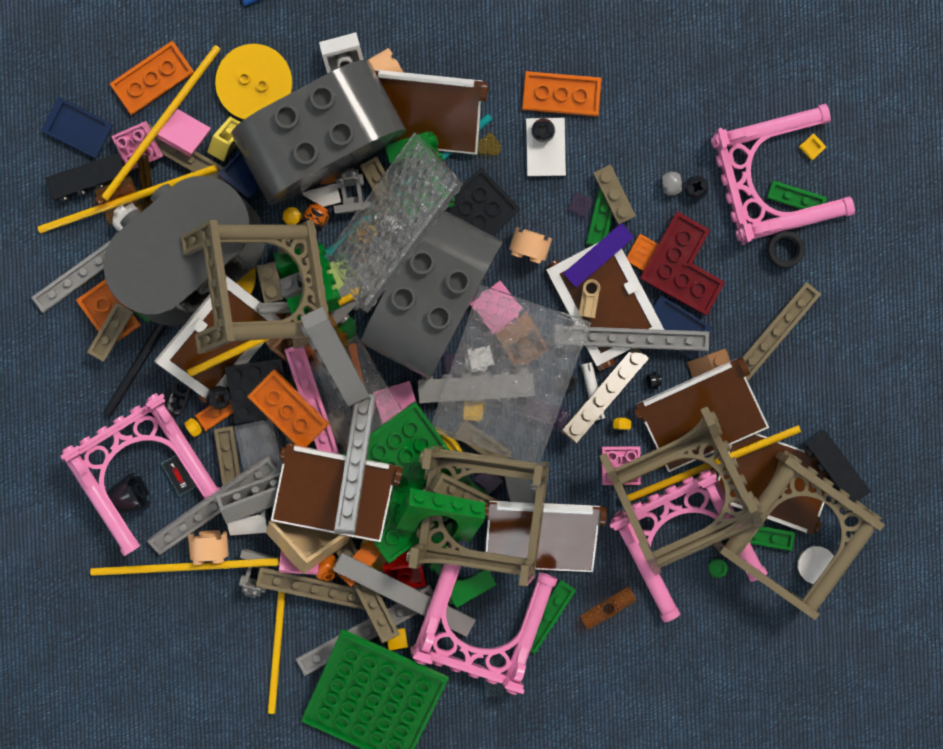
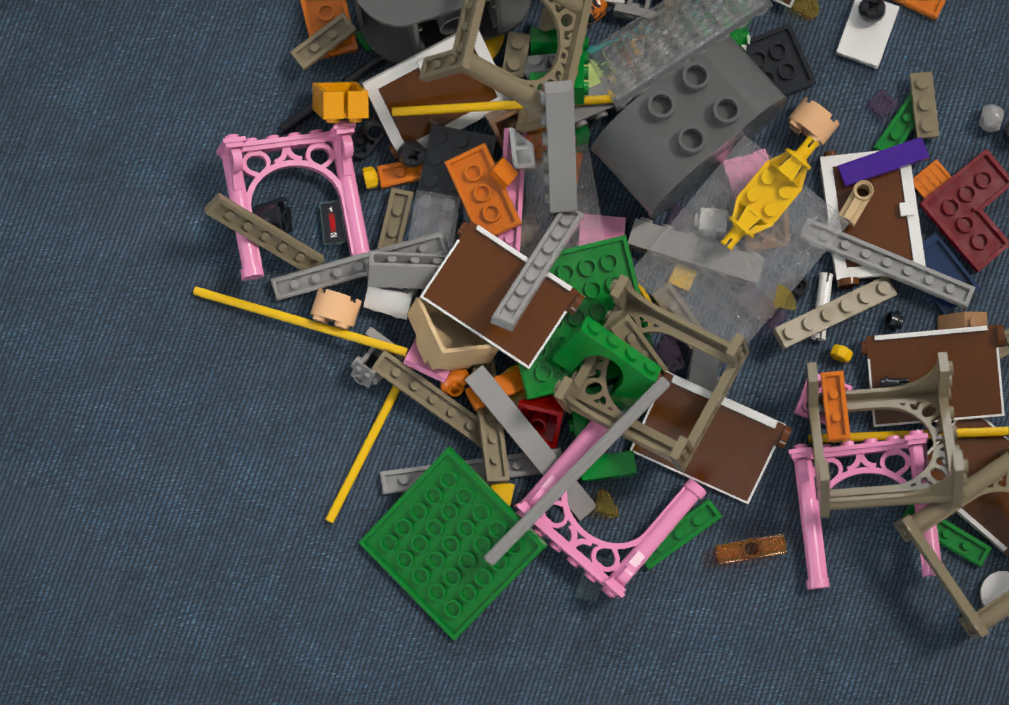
camera: 15 degrees right, 10 degrees down
(125, 515) = (262, 233): none -> dark tan plate
(143, 380) = (340, 101): none -> light orange piece
(298, 389) = (503, 172): none -> orange tile
(306, 364) = (522, 151): none -> white tile
(450, 613) = (576, 471): none -> light grey axle
(482, 616) = (605, 505): none -> clear yellow tile
(517, 326) = (769, 193): none -> yellow plate
(561, 403) = (784, 298): none -> clear yellow tile
(633, 474) = (835, 406): none -> orange tile
(672, 435) = (892, 382): none -> black pin
(717, 568) = (890, 554): green tile -> none

